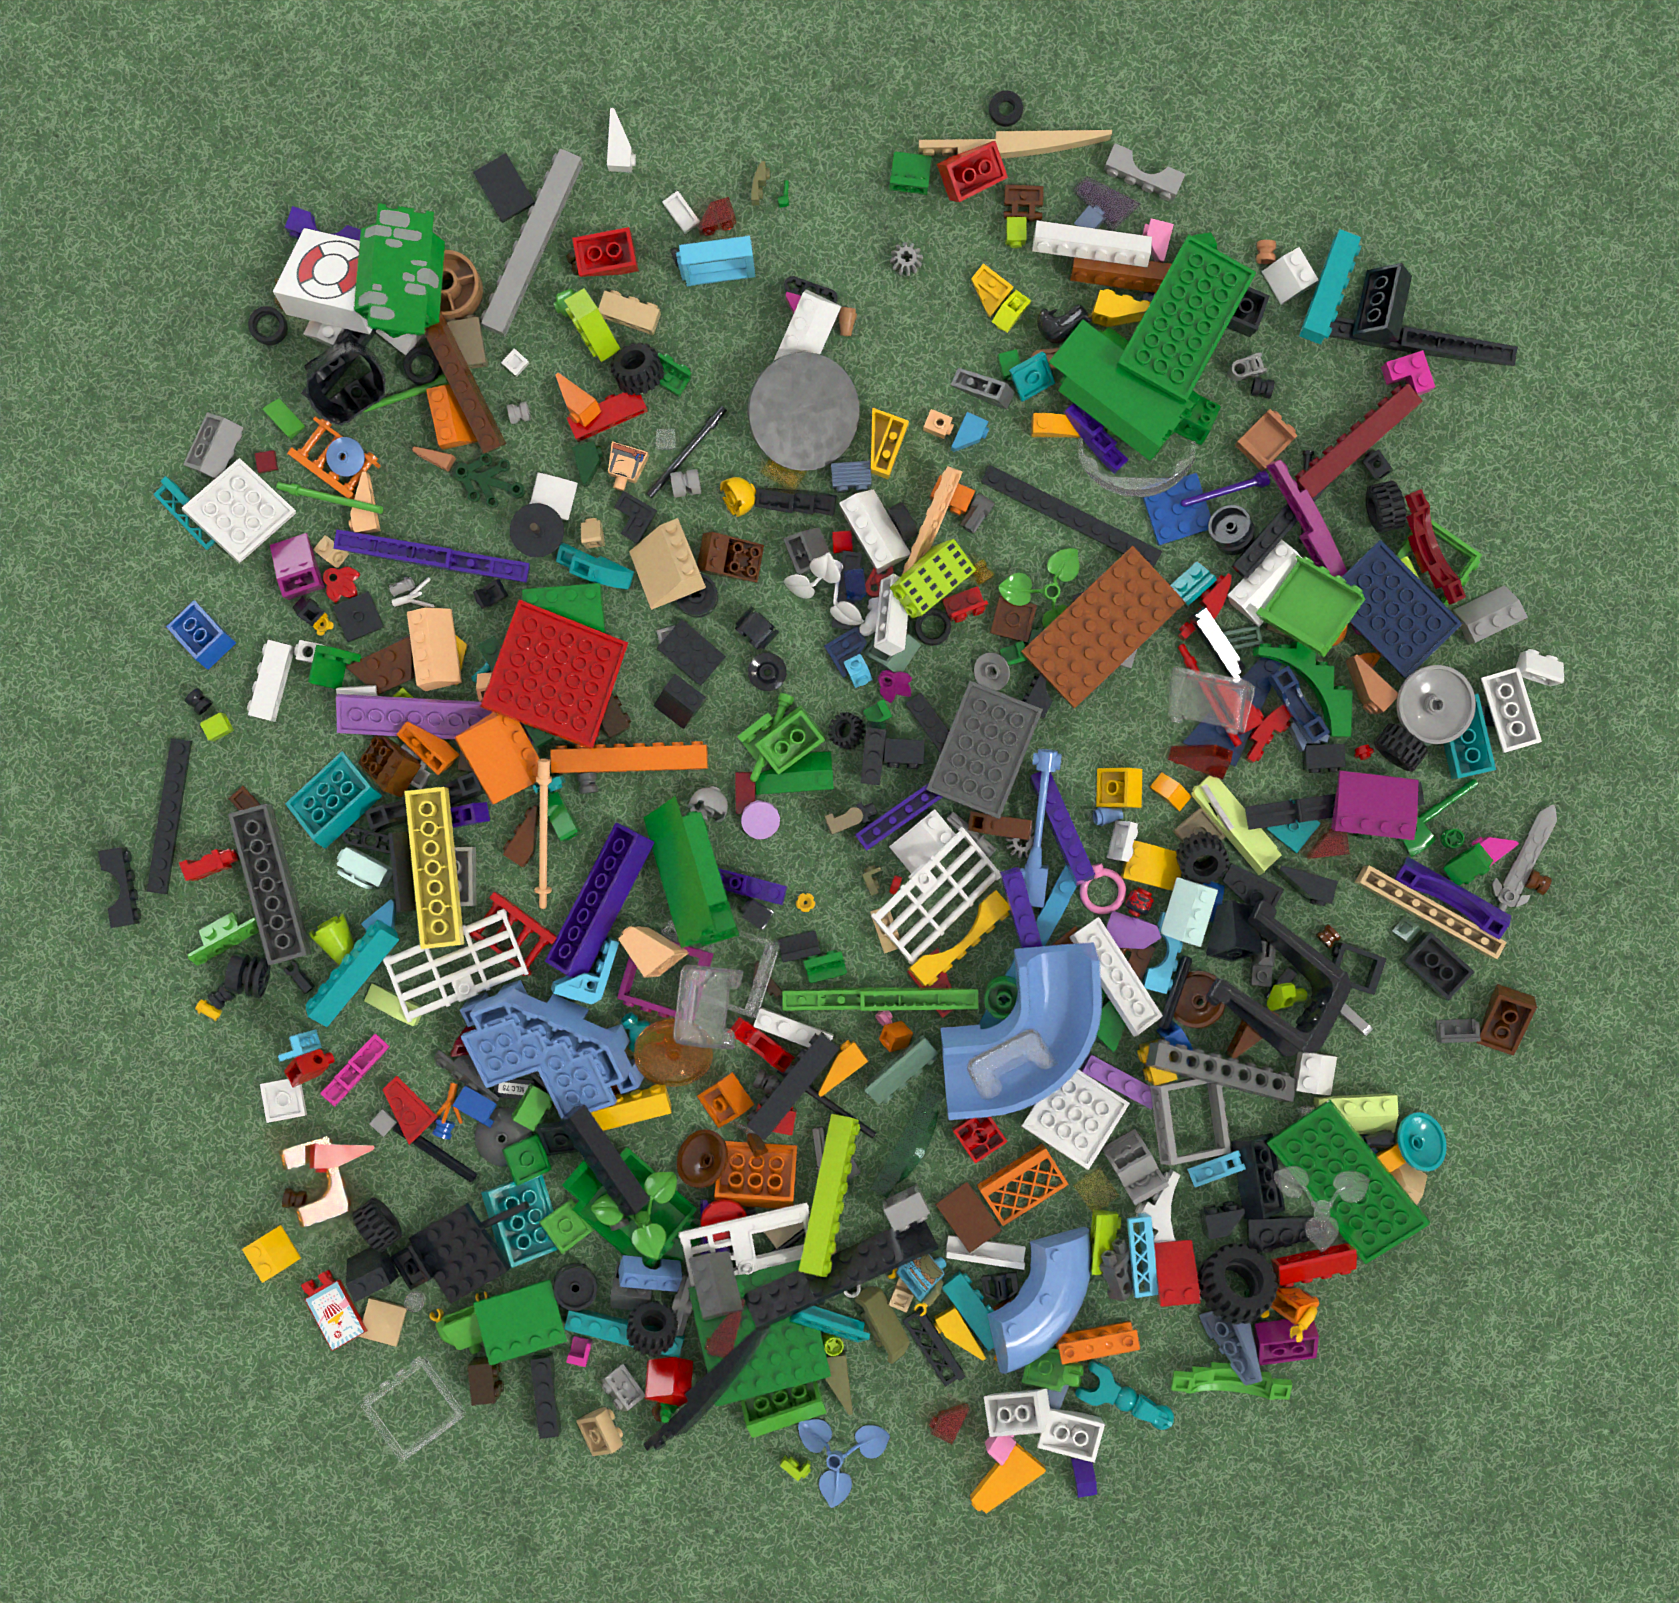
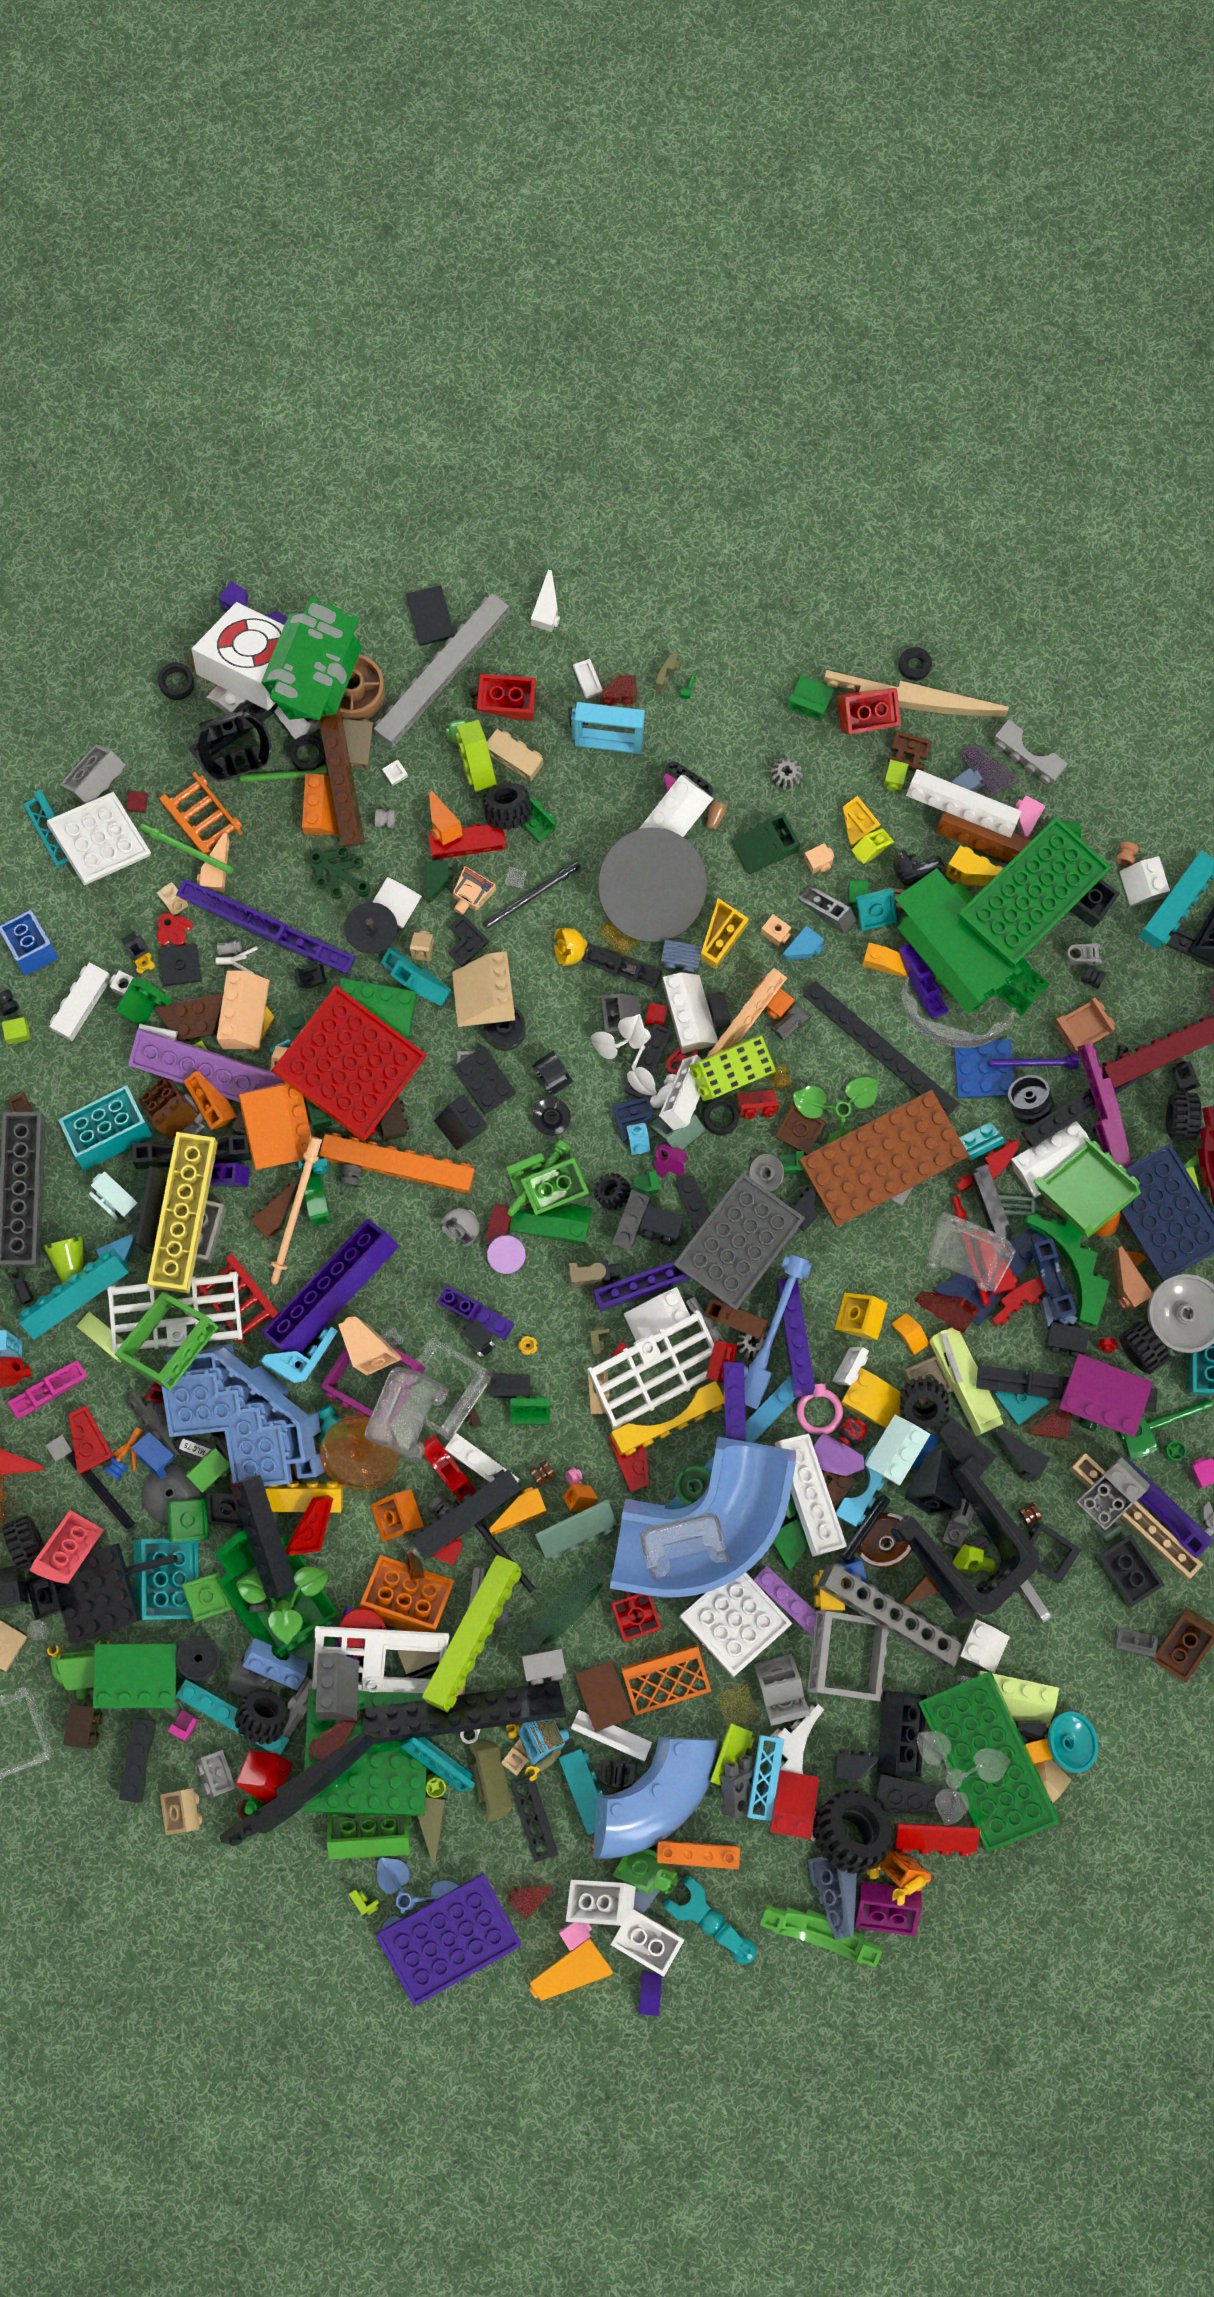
camera: 15 degrees right, 10 degrees down
(284, 418) = (165, 767): bright green slope -> none
(296, 567) = (135, 904): magenta slope -> none
(354, 456) = (219, 819): medium blue dish -> none
(357, 831) = (119, 1164): black beam -> none
(419, 1220) = (66, 1548): none -> coral slope
(440, 459) = (296, 839): nougat slope -> none
(479, 1007) = (183, 1356): none -> bright green window
(647, 1137) = (312, 1527): none -> red wing
(685, 483) = (523, 922): light grey wheel -> none
(690, 876) = (424, 1286): green panel -> none
(695, 1155) = (358, 1565): reddish brown dish -> none
(730, 557) = (546, 1001): reddish brown slope -> none
(853, 1022) = (542, 1473): none -> reddish brown wheel
(854, 584) = (657, 1055): clear blue slope -> none
(880, 999) = (574, 1456): bright green slope -> none
(884, 1480) = (448, 1939): none -> dark purple plate
(906, 337) = (767, 843): none -> dark green slope
(956, 1330) = (561, 1805): yellow slope -> none
(962, 338) = (819, 858): none -> light nougat brick
(995, 862) = (721, 1353): none -> red slope
(1106, 815) = (841, 1339): medium blue cone -> none
(1215, 1169) = (861, 1714): medium azure plate -> none
(1406, 898) = (1113, 1493): none -> light grey slope
(1468, 864) = (1183, 1479): green brick -> none

